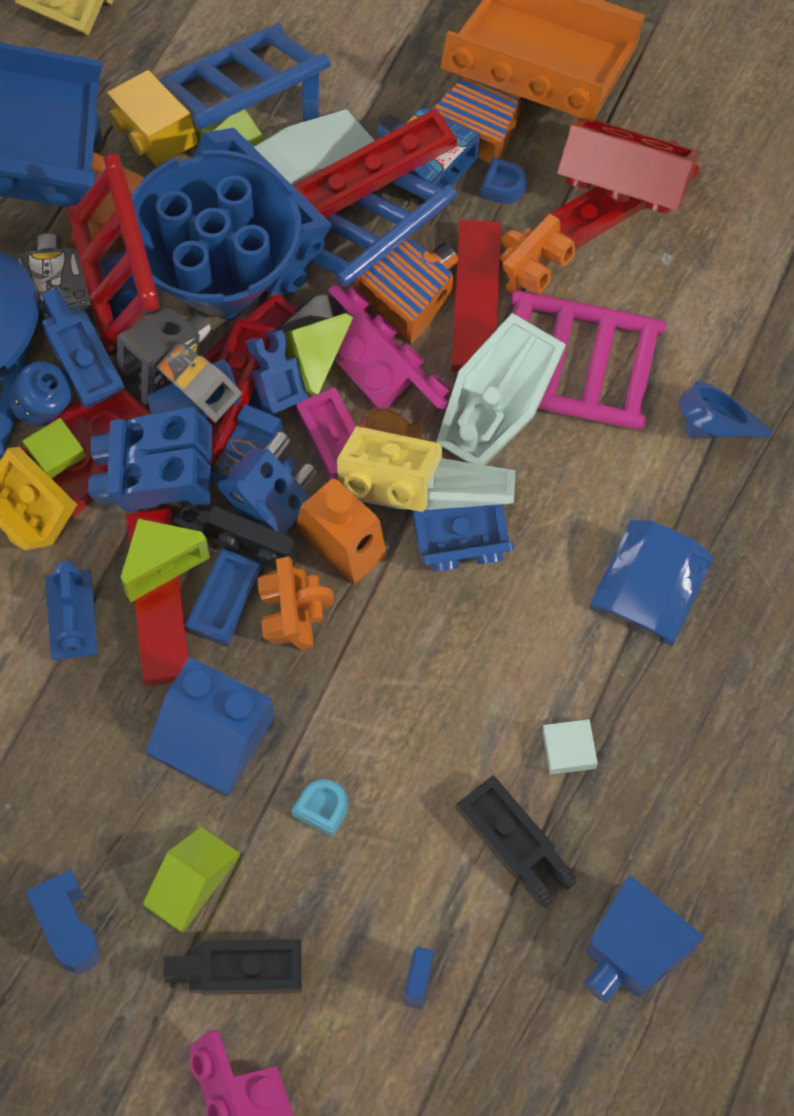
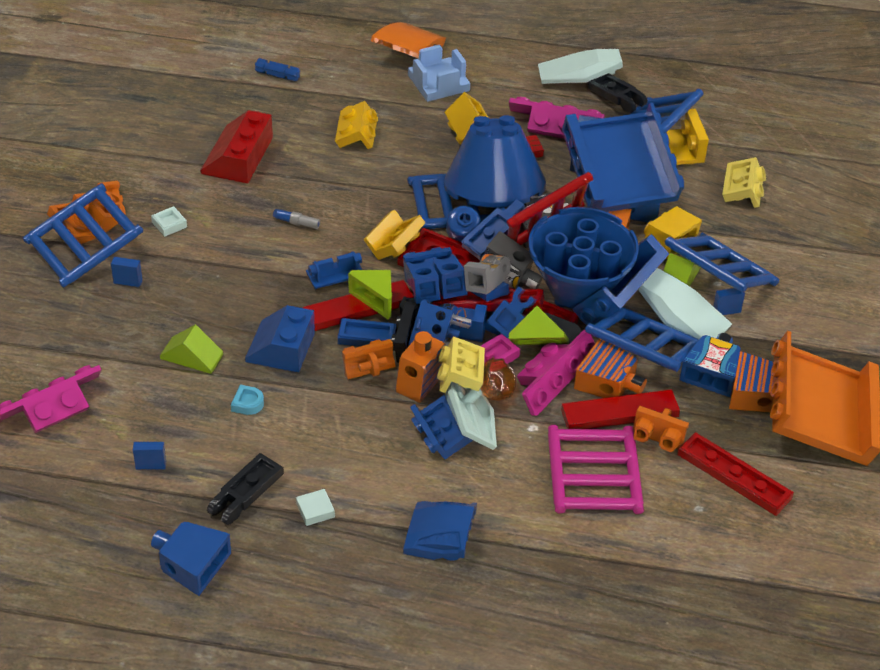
camera: 75 degrees right, 20 degrees down
(54, 448) = (431, 237): lime tile -> none
(68, 937) = (153, 304): blue leg -> none
(239, 967) = (142, 380): black hinge -> none
(378, 163) = (683, 331): red tile -> none
(499, 390) = (548, 424): light aqua piece -> none
(504, 182) = (715, 410): blue tile -> none
(628, 164) = (753, 459): slope -> none
(715, 414) = (580, 544): blue piece -> none

